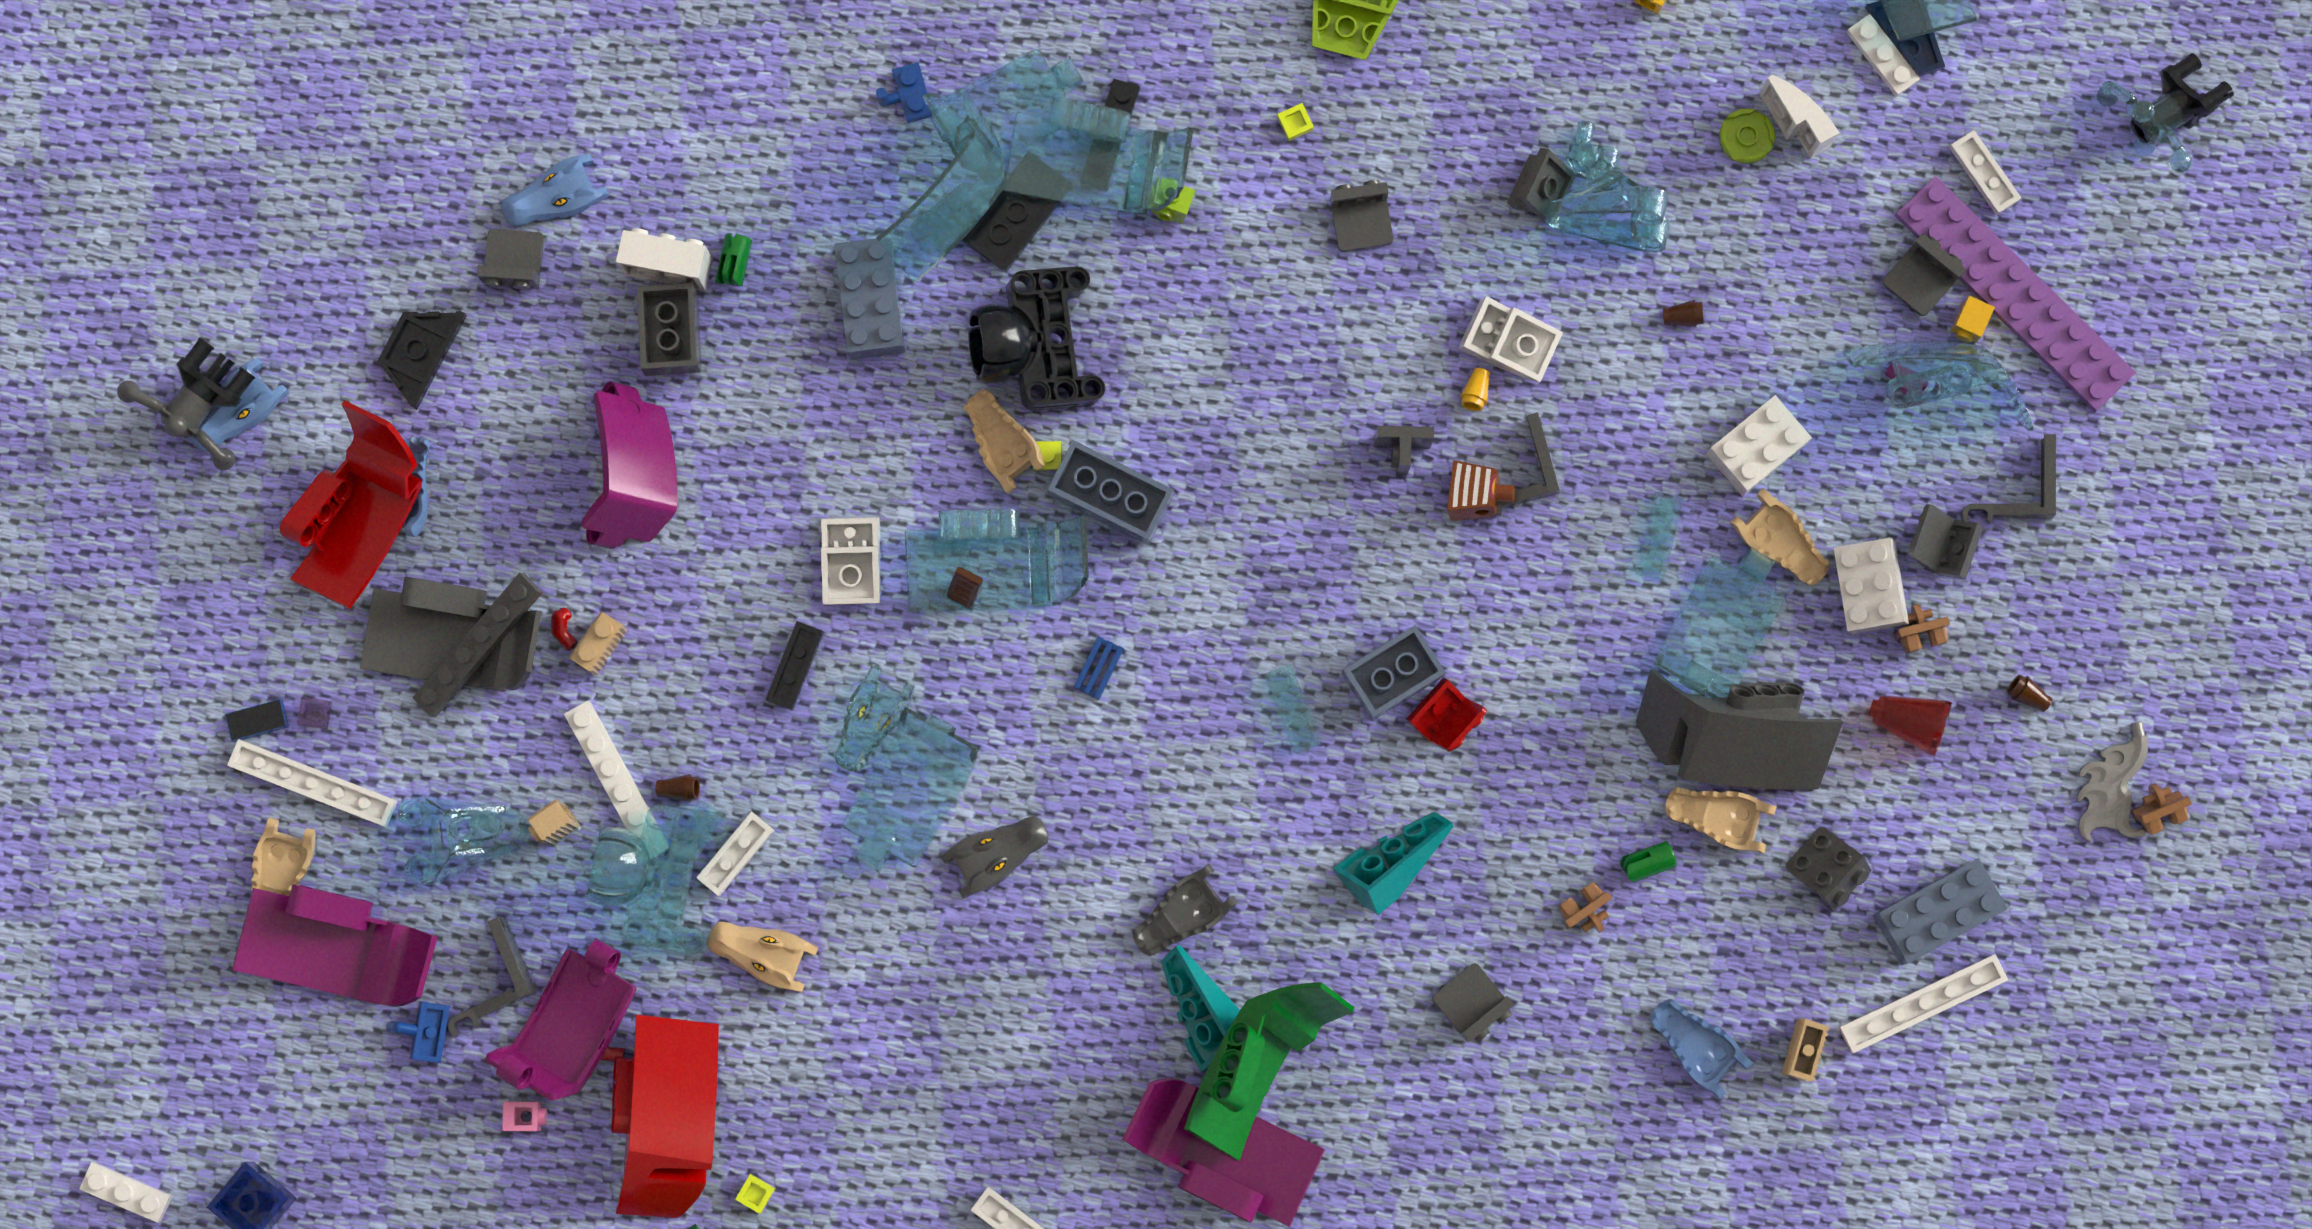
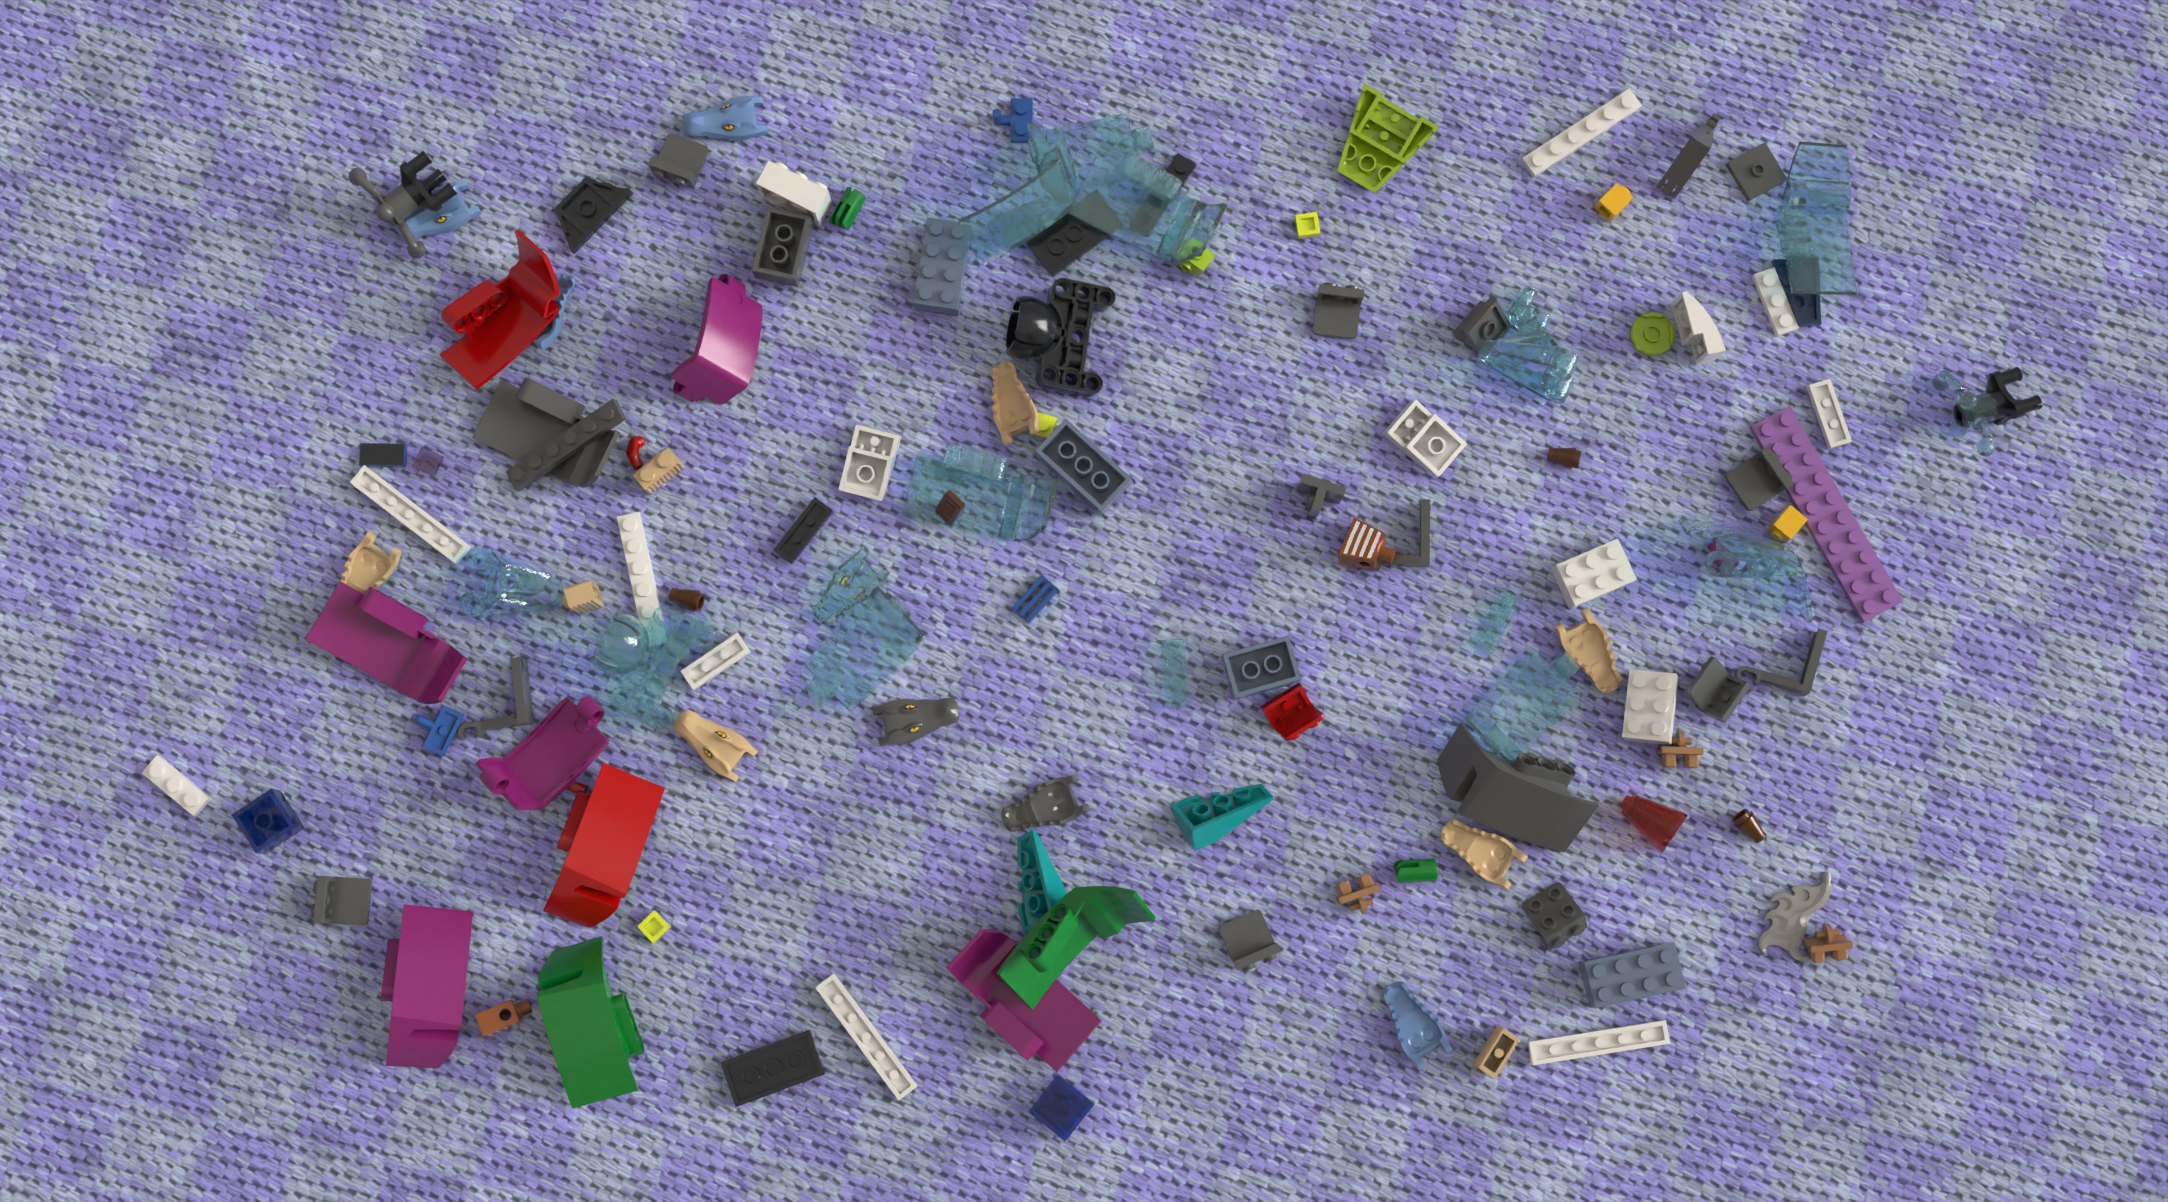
camera: 10 degrees right, 0 degrees up
(513, 1116) = (487, 812): bright pink brick -> none
(1476, 390) = (1387, 469): yellow cone -> none

